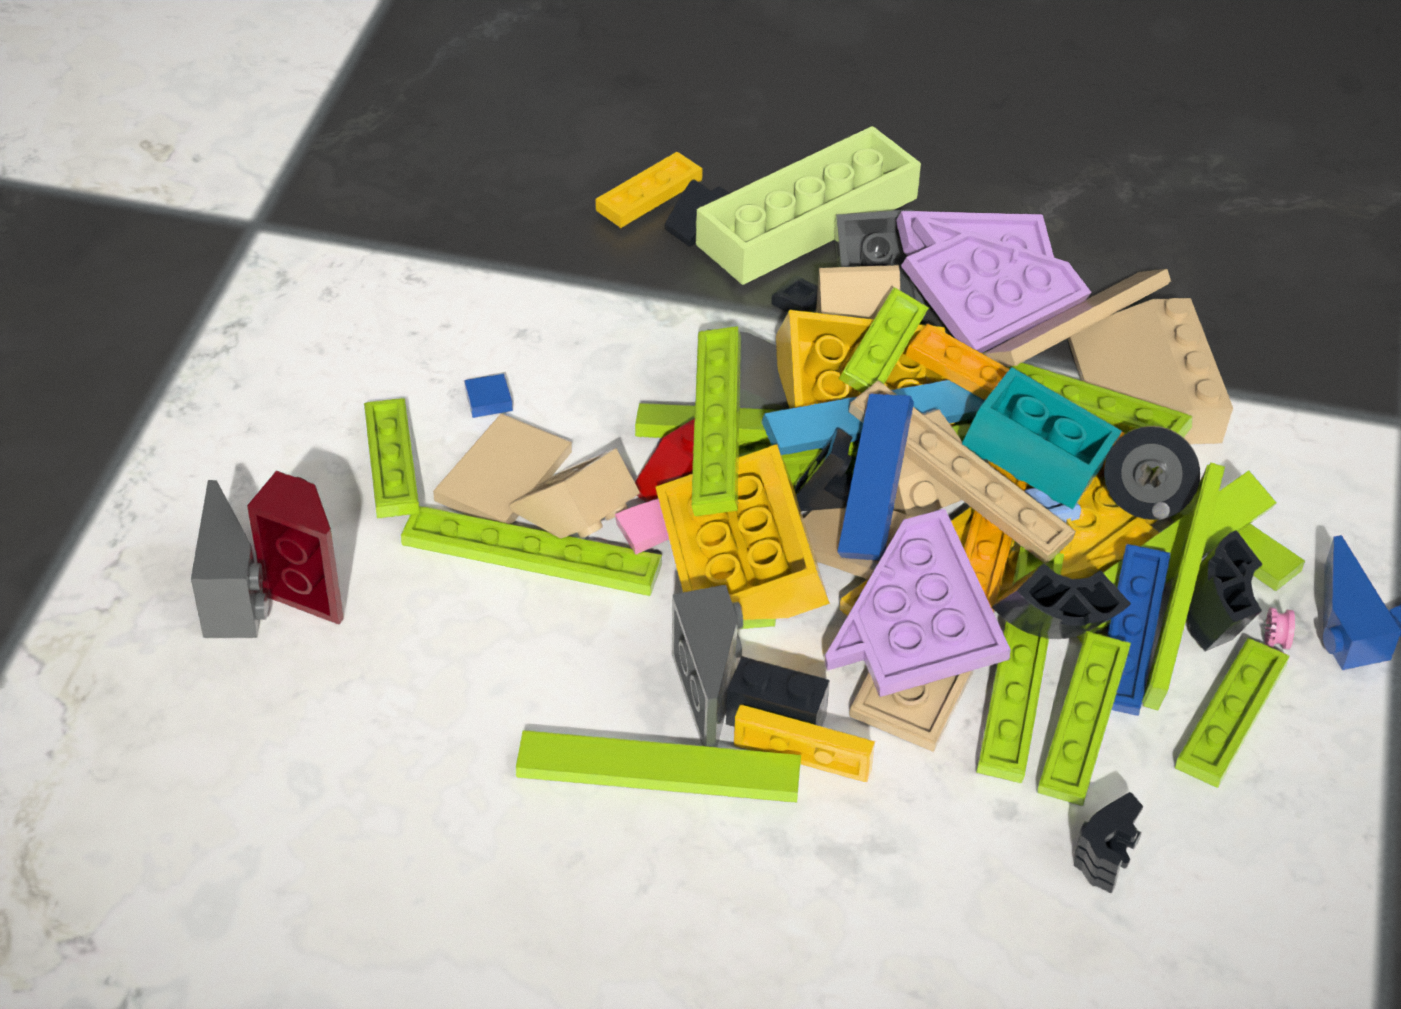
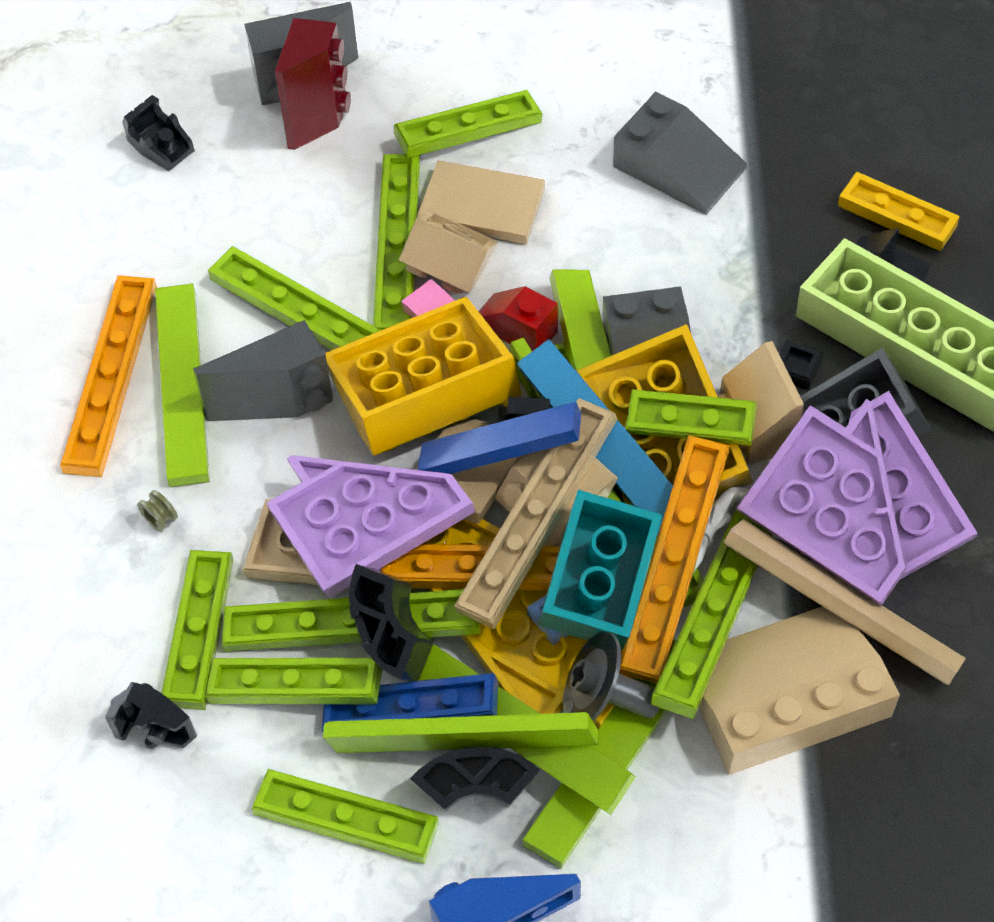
camera: 80 degrees right, 10 degrees up
(272, 732) = (157, 134): none -> black hand
(488, 395) = (570, 168): blue tile -> none
(509, 314) = (676, 154): none -> dark grey slope
(586, 646) = (287, 299): none -> lime plate
(622, 834) = (108, 377): none -> light orange tile
(716, 422) = (542, 310): lime tile -> none
(777, 692) = (254, 442): black brick -> none
(817, 745) = (216, 472): yellow tile -> none
(839, 805) = (157, 510): none -> olive bush
(992, 798) = (197, 628): none -> lime tile
(1280, 628) = (453, 843): bright pink bush -> none

